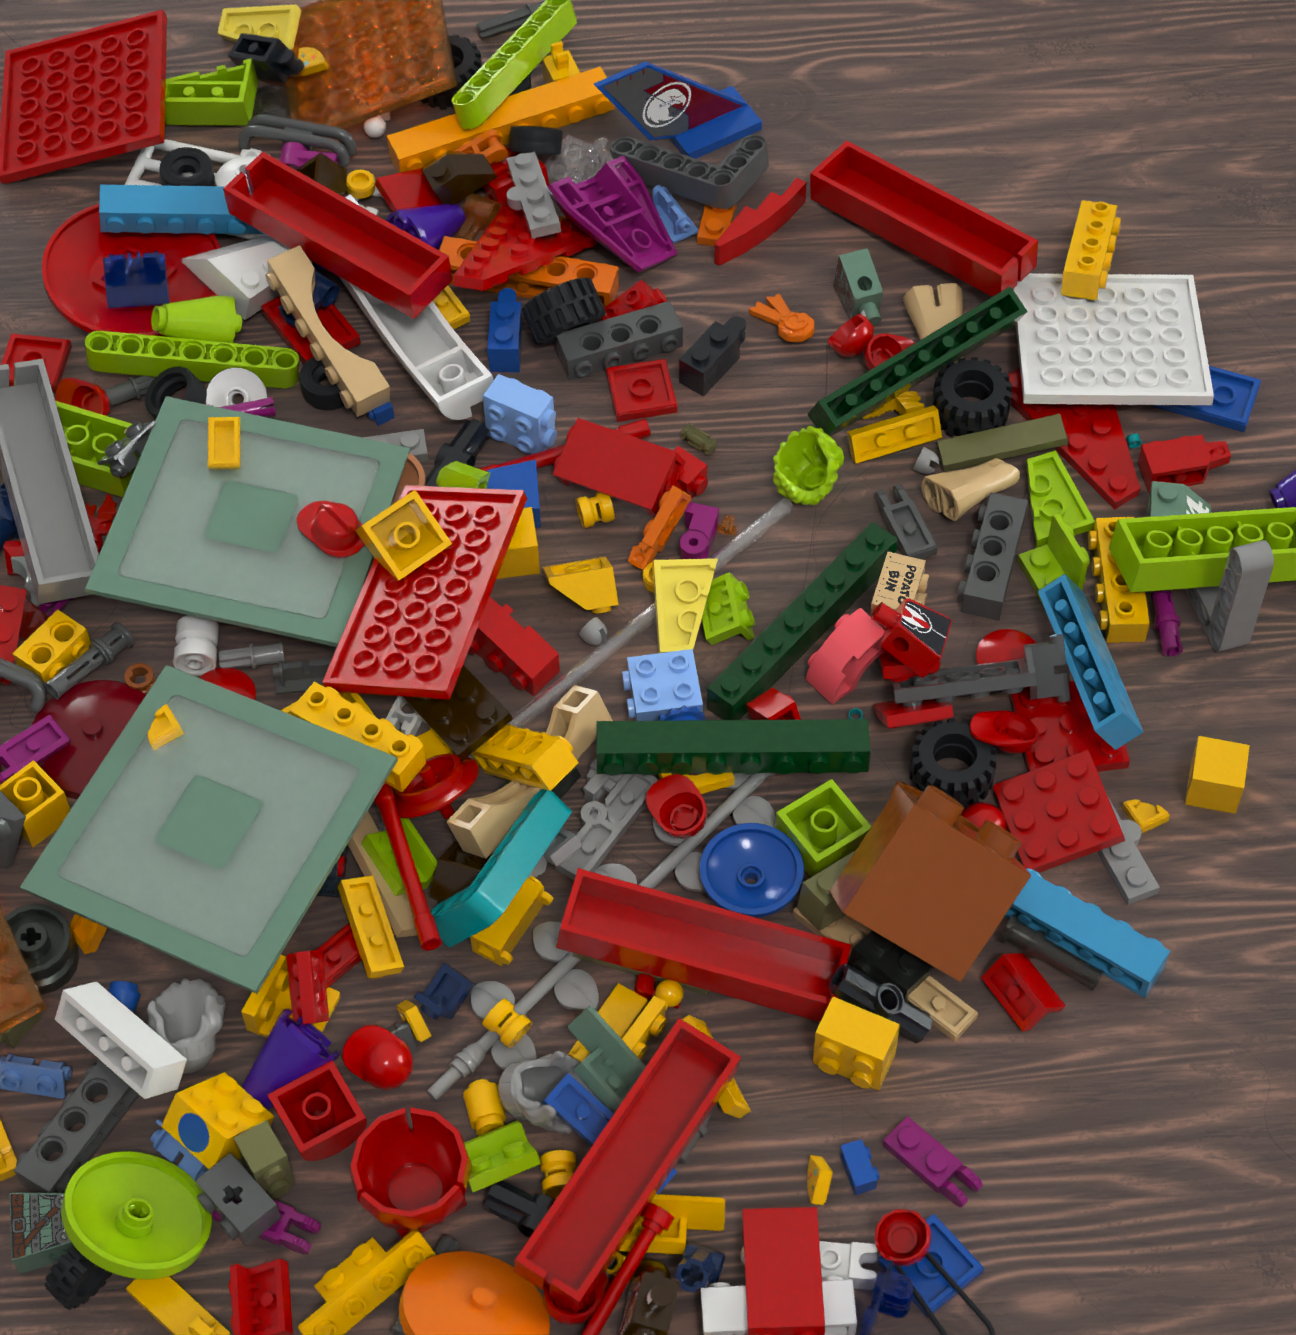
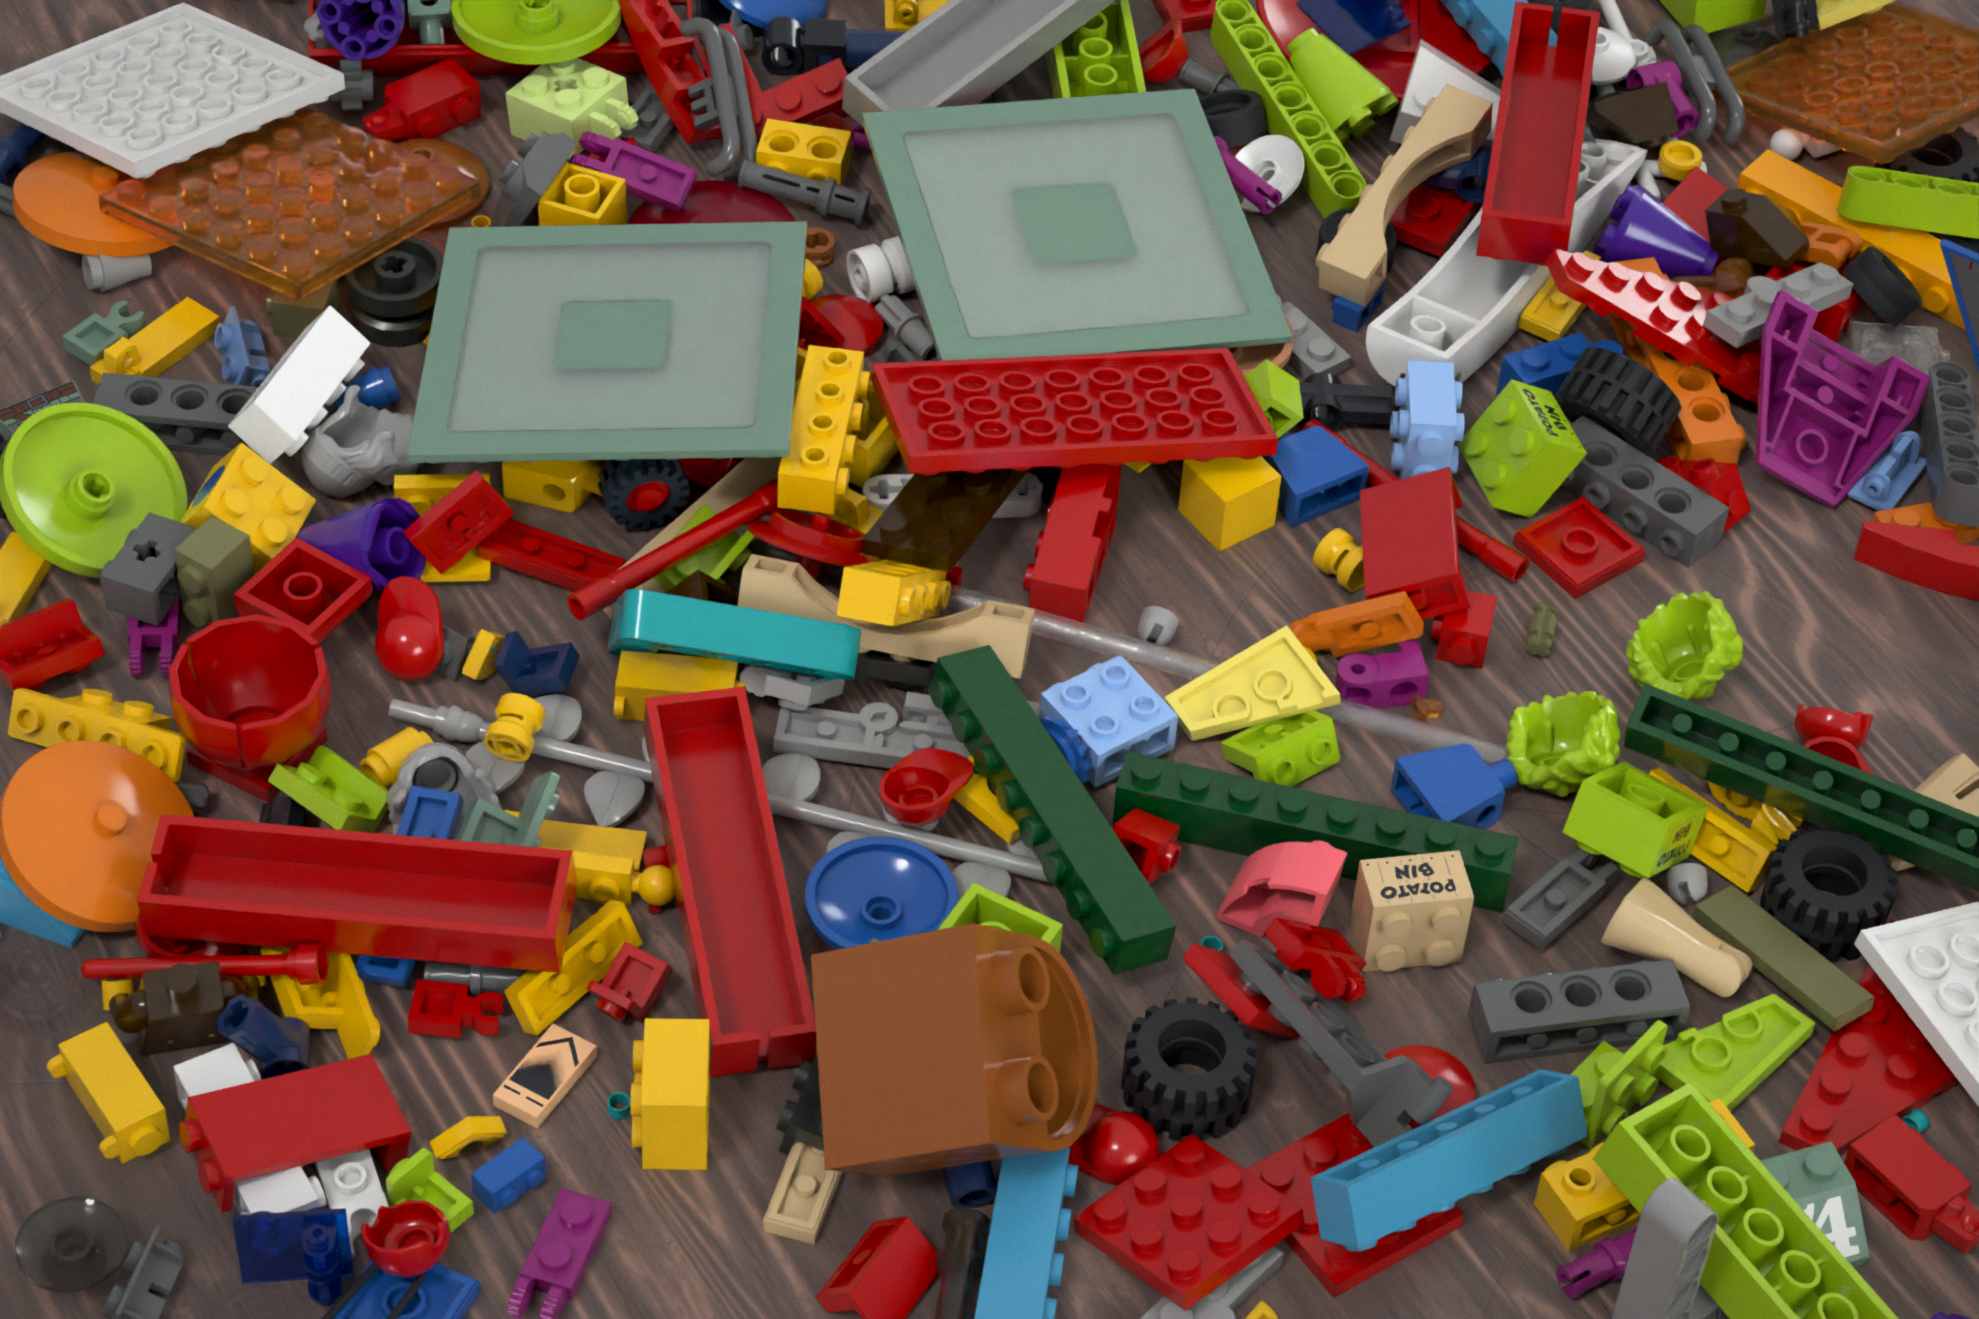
camera: 60 degrees right, 10 degrees down
(120, 453) = (1084, 83): dark grey hinge -> none
(163, 728) = (716, 250): yellow tile -> none
(223, 443) = (1158, 157): yellow tile -> none
(312, 60) = (1822, 39): yellow tile -> none
(331, 528) = (1108, 300): red piece -> none
(370, 927) = (584, 558): yellow hinge -> none
(404, 536) = (1129, 349): yellow slope -> none
(571, 375) = (1521, 449): none -> lime brick
(586, 583) = (1221, 588): yellow slope -> none
(710, 1155) = (447, 1007): none -> red plate
(712, 355) = (1661, 574): black brick -> none
(743, 1038) = (630, 984): none -> red bracket
(767, 375) = (1685, 646): none -> lime hair
(786, 1118) = (544, 1075): none -> light nougat tile
(791, 325) = (1810, 660): orange piece -> none
(806, 540) = (1453, 785): none -> blue torso
(825, 1090) = (619, 1097): none -> teal piece
(858, 285) = (1920, 699): sand green torso -> none
(858, 1219) = (417, 1180): none -> lime bracket
(881, 1000) = (748, 1132): black piece -> none
(884, 460) = (1634, 820): none -> lime brick
(913, 634) = (1339, 921): red torso -> none
(1005, 730) = (1272, 1098): red cap -> none

